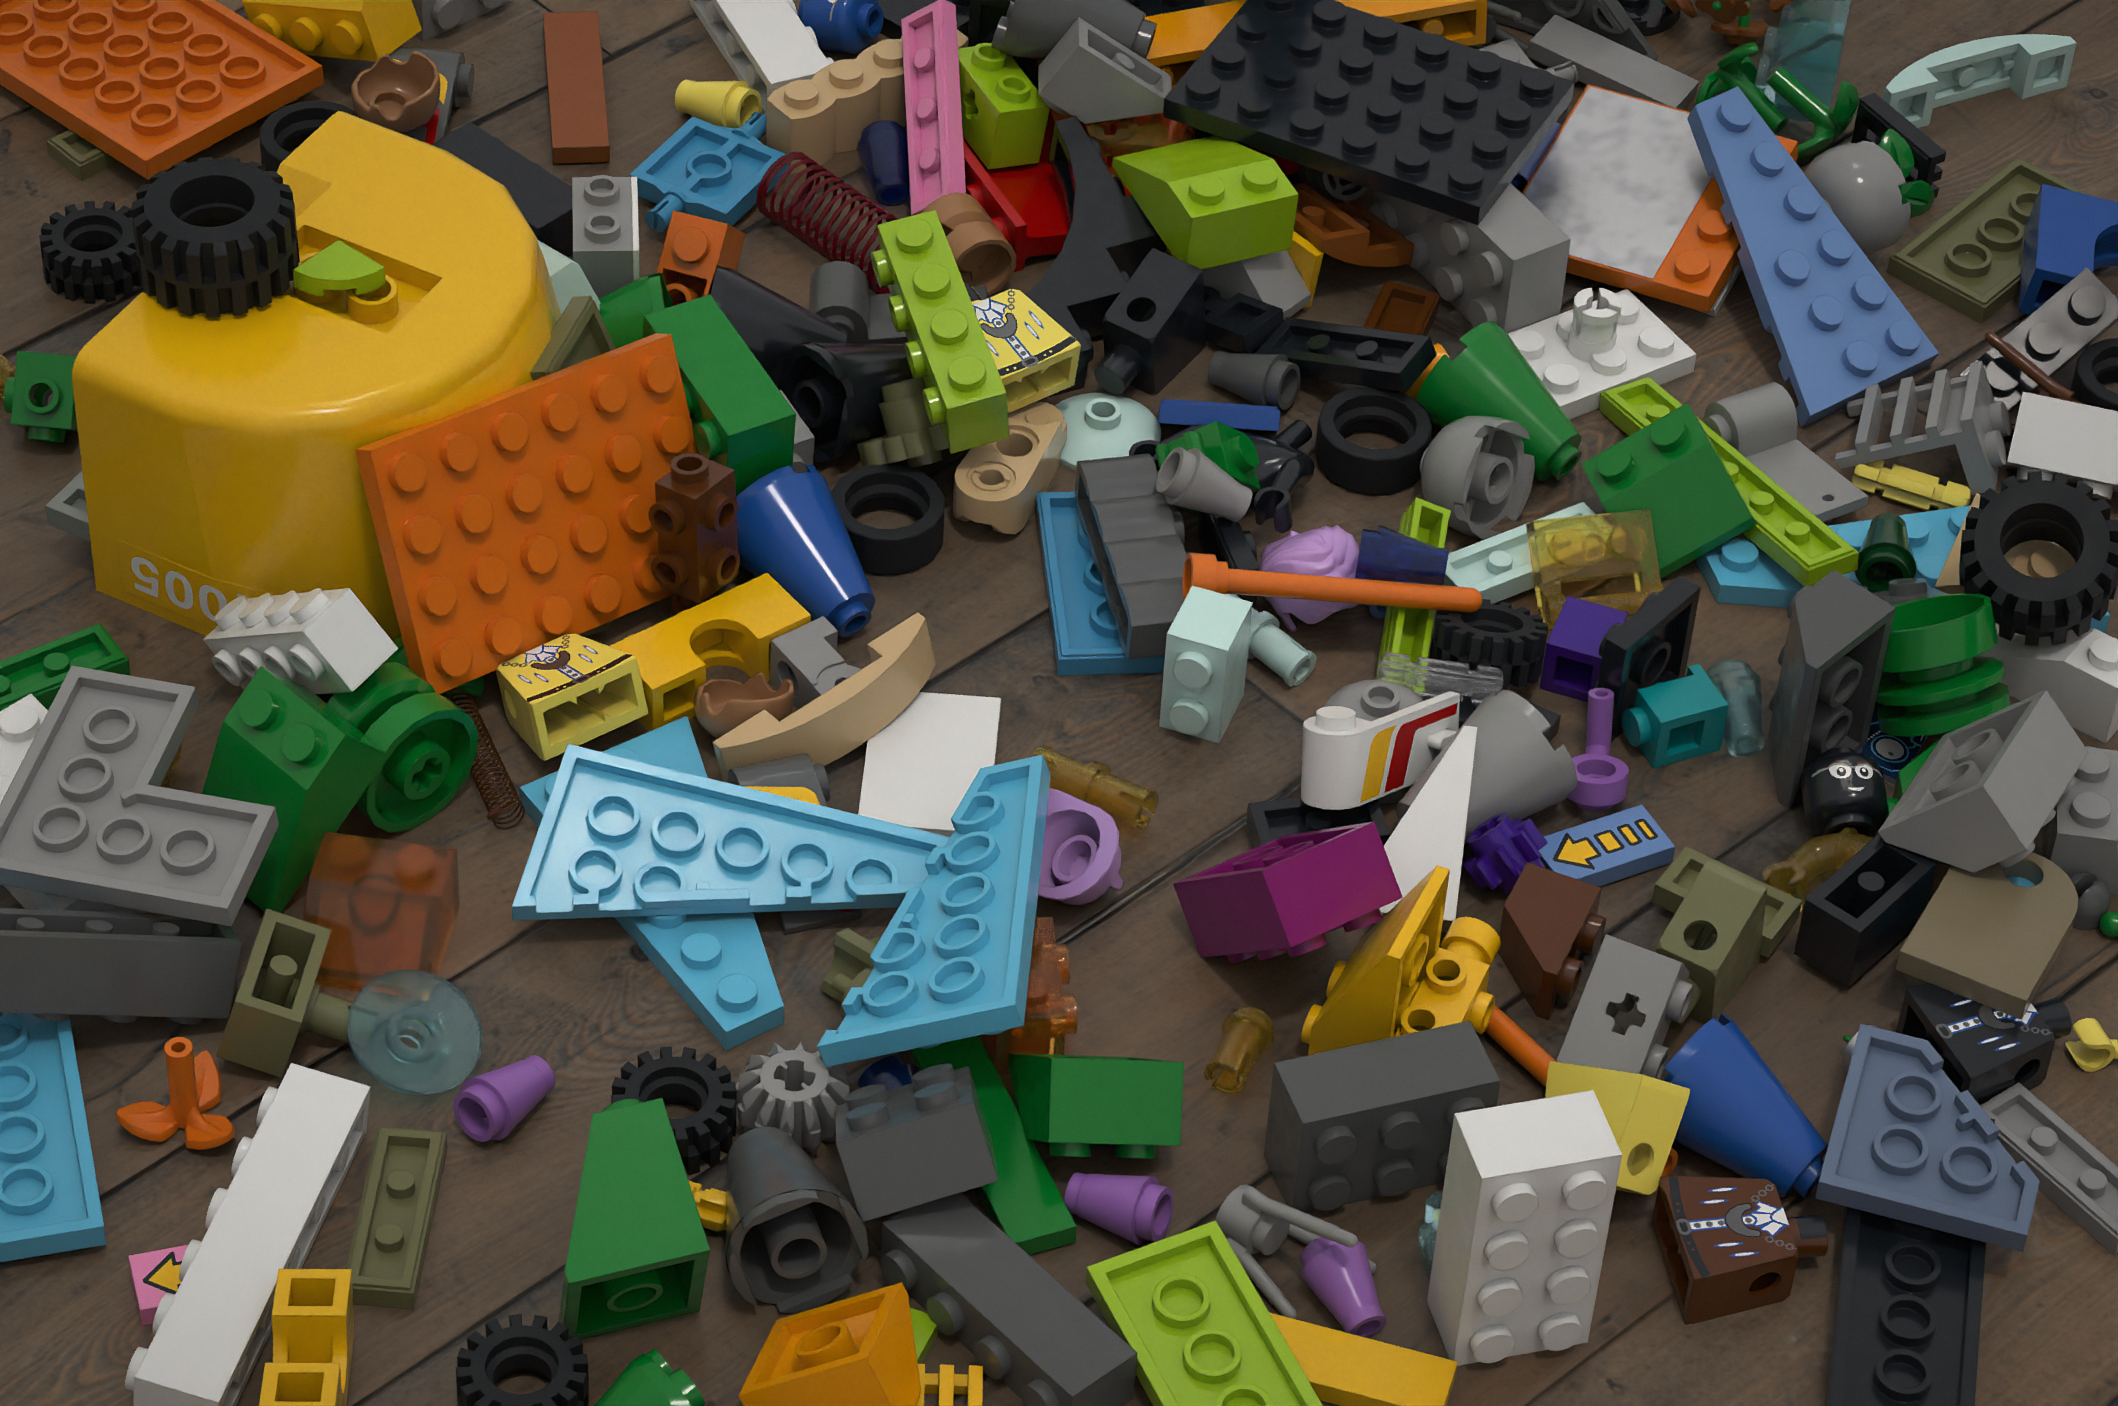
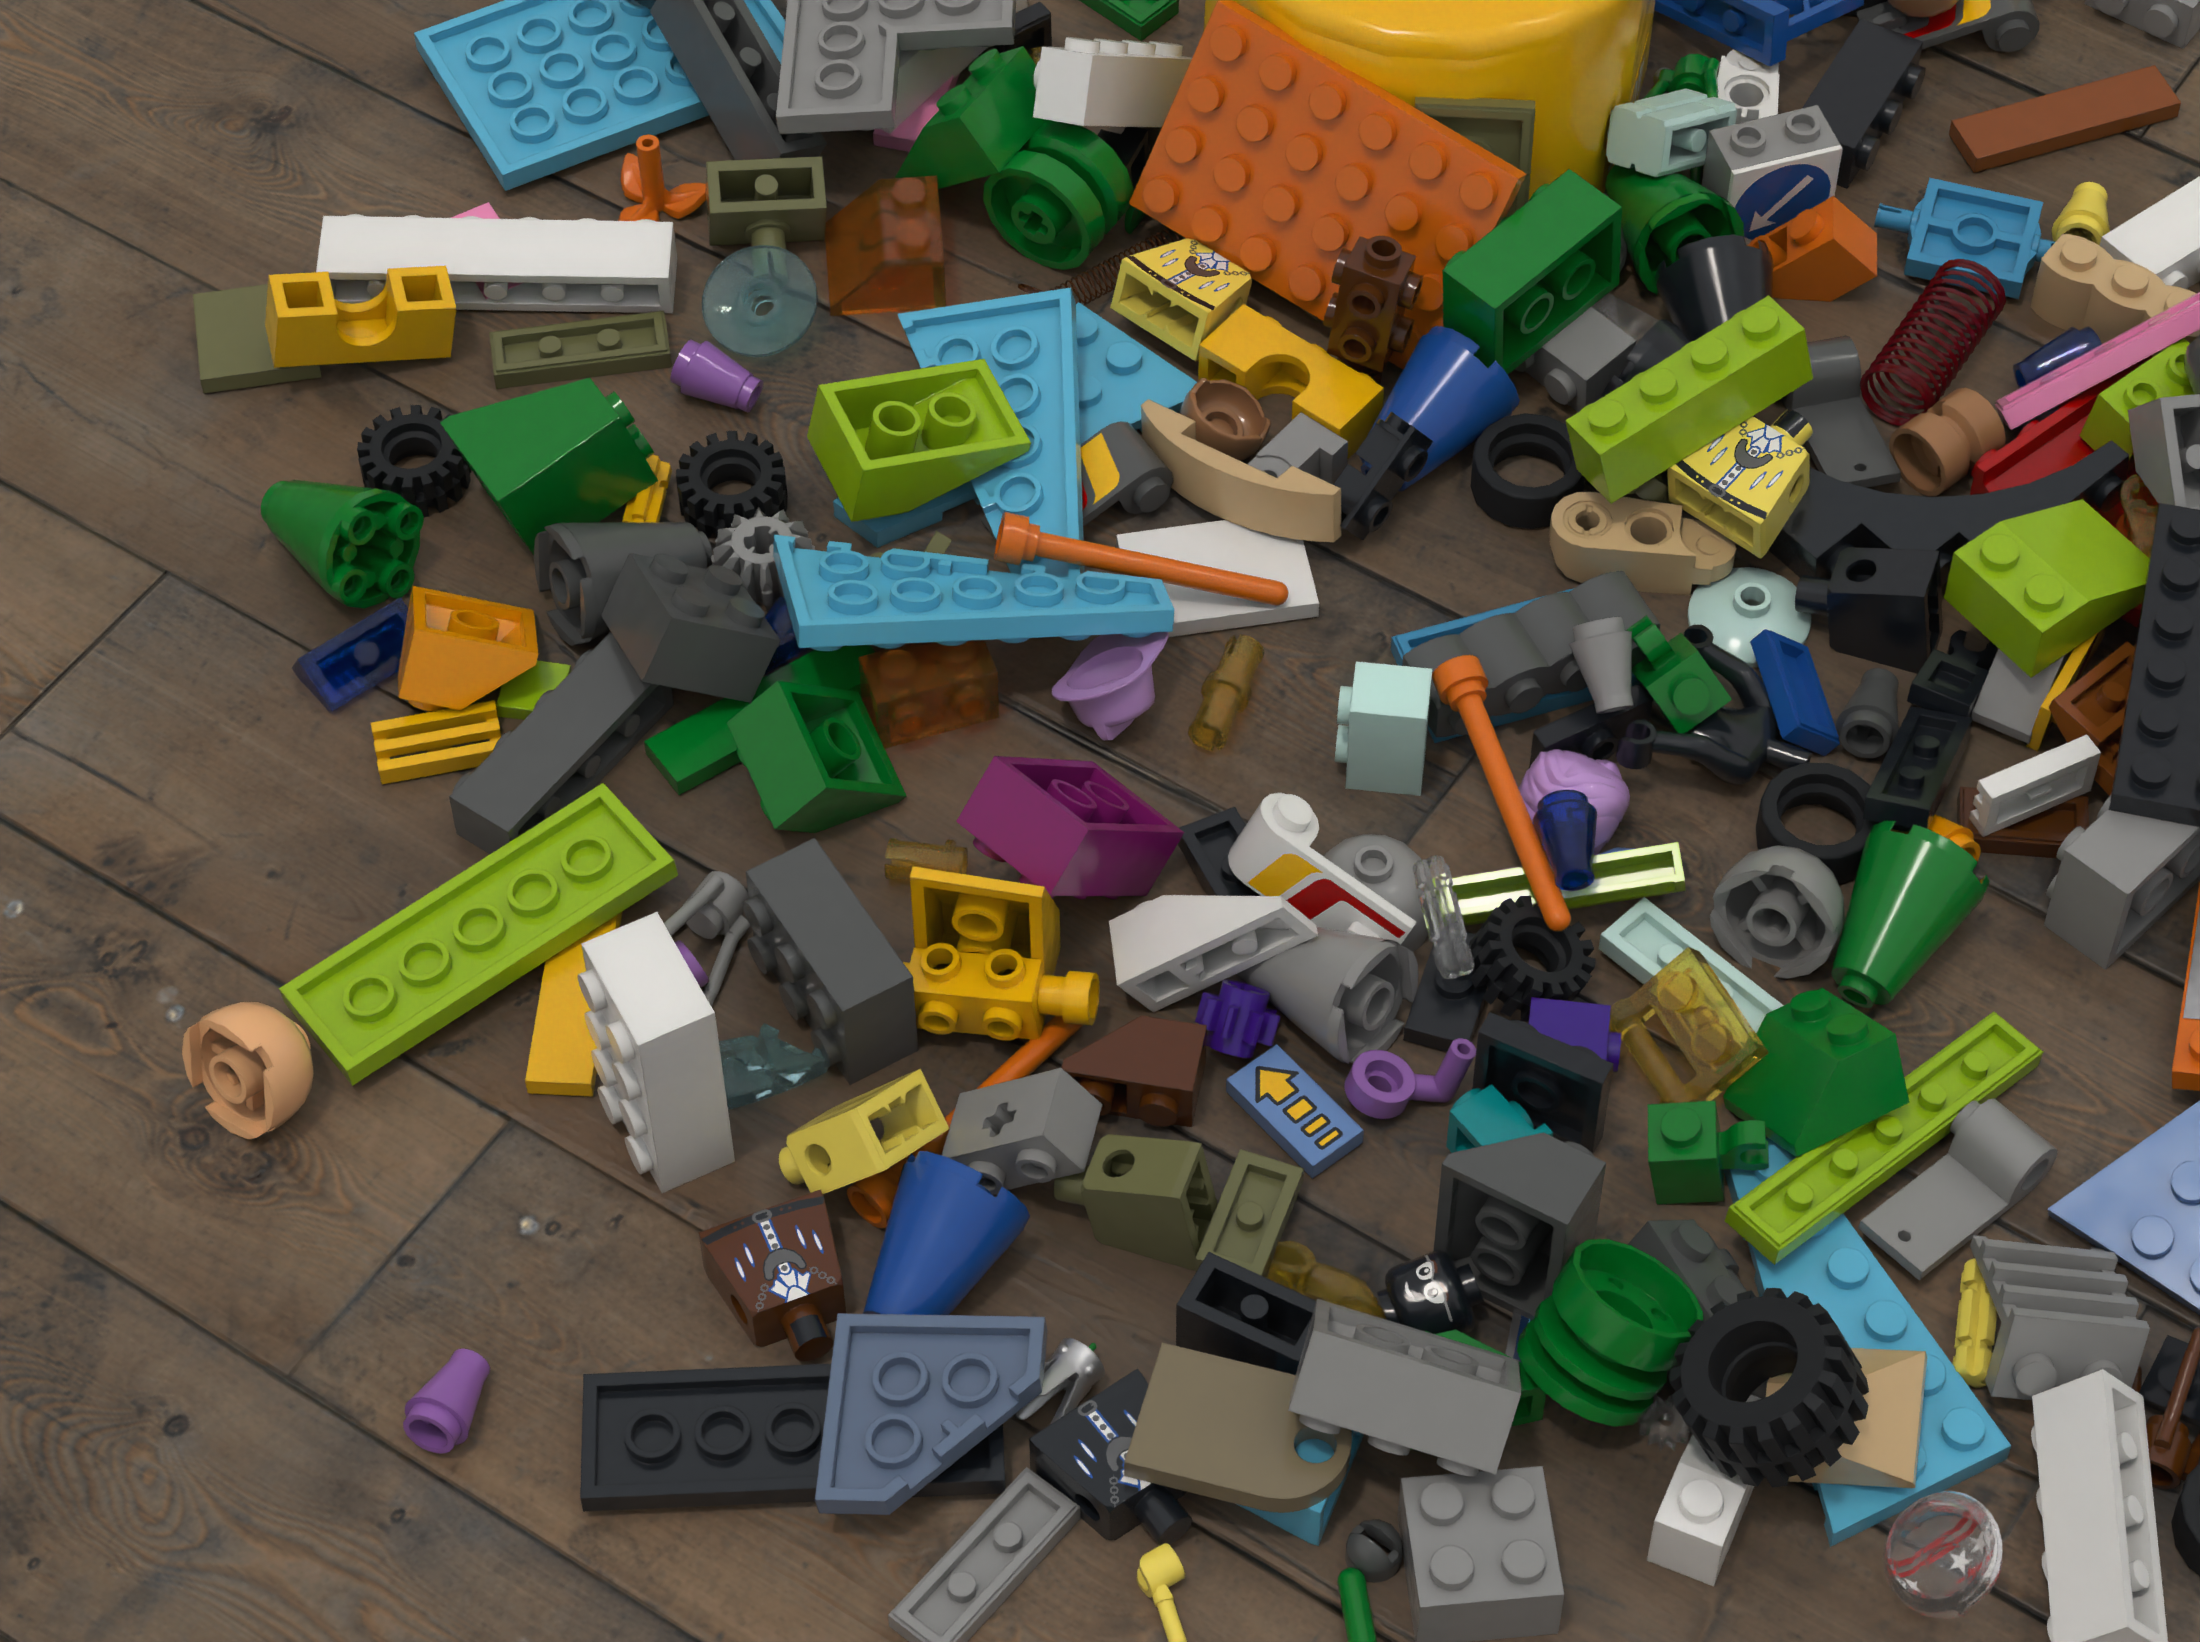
camera: 80 degrees right, 10 degrees up
(713, 919) = (912, 435): none -> lime slope
(874, 576) = (1396, 456): none -> black hinge
(903, 851) = (1023, 541): none -> orange piece
(1122, 1204) = (708, 811): medium lavender cone -> none
(1278, 649) = (1474, 794): light aqua pin -> none
(1388, 285) = (2035, 785): none -> white tile
(1601, 349) = (2063, 997): white plate -> none
(1727, 591) = (1691, 1152): none -> green brick
(1885, 553) = (1829, 1284): dark green cone -> none

